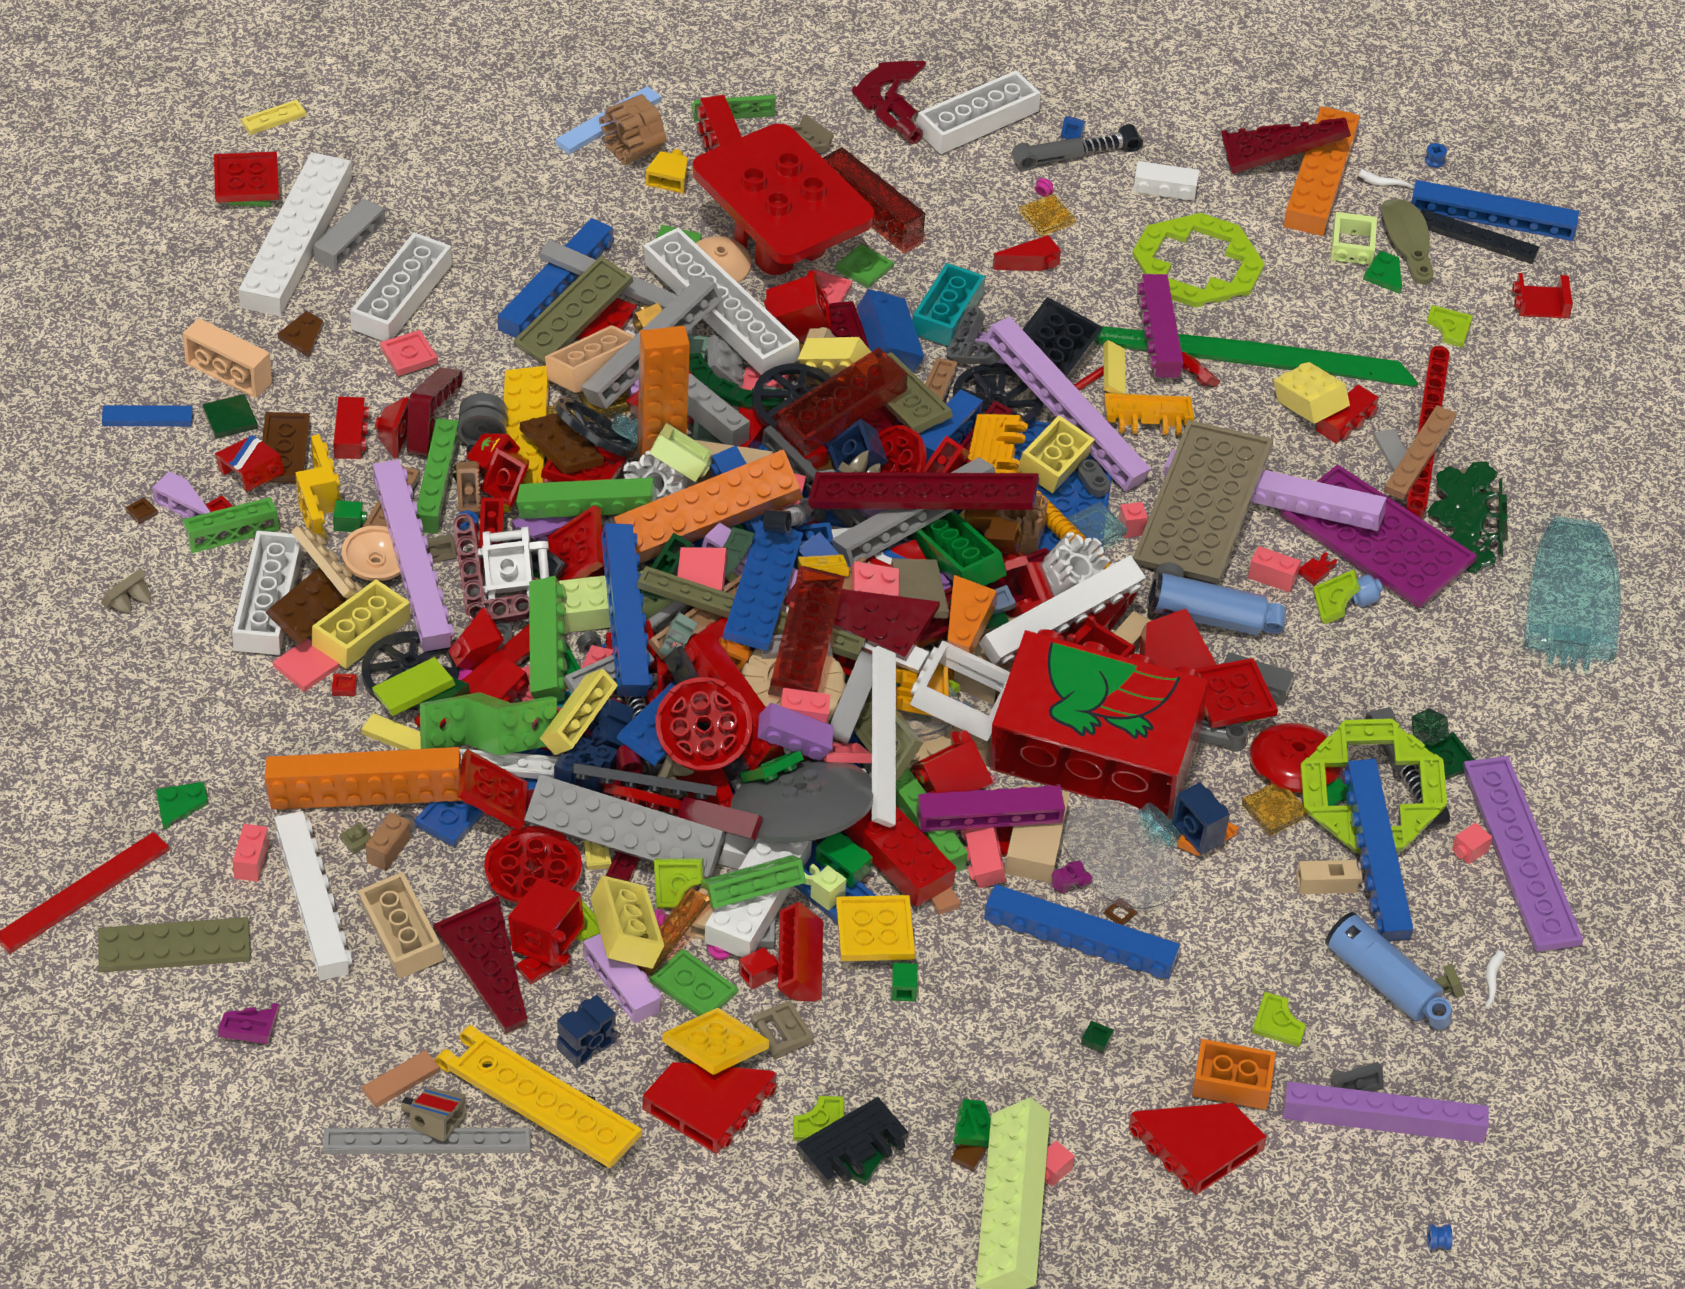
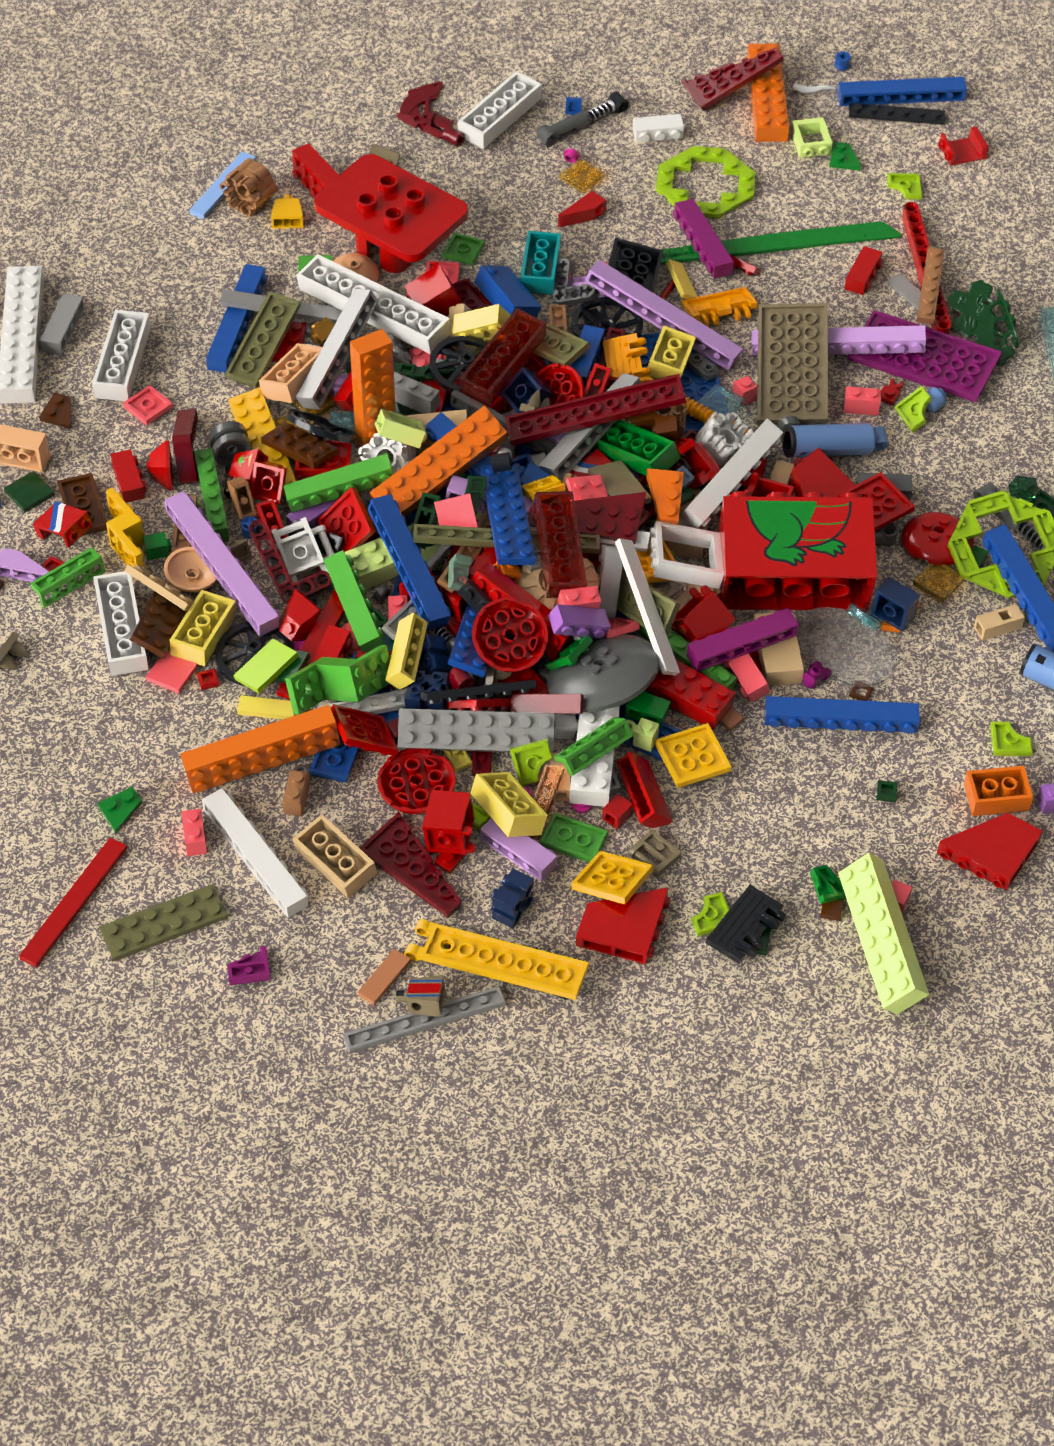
camera: 15 degrees left, 5 degrees up
(355, 838) = (269, 797): olive tile -> none
(745, 106) = (324, 148): bright green fence -> none
(894, 214) = (482, 205): clear red brick -> none
(904, 982) = (729, 790): green brick -> none
(1311, 392) = (834, 260): light yellow brick -> none
(1410, 236) = (851, 126): olive plant -> none

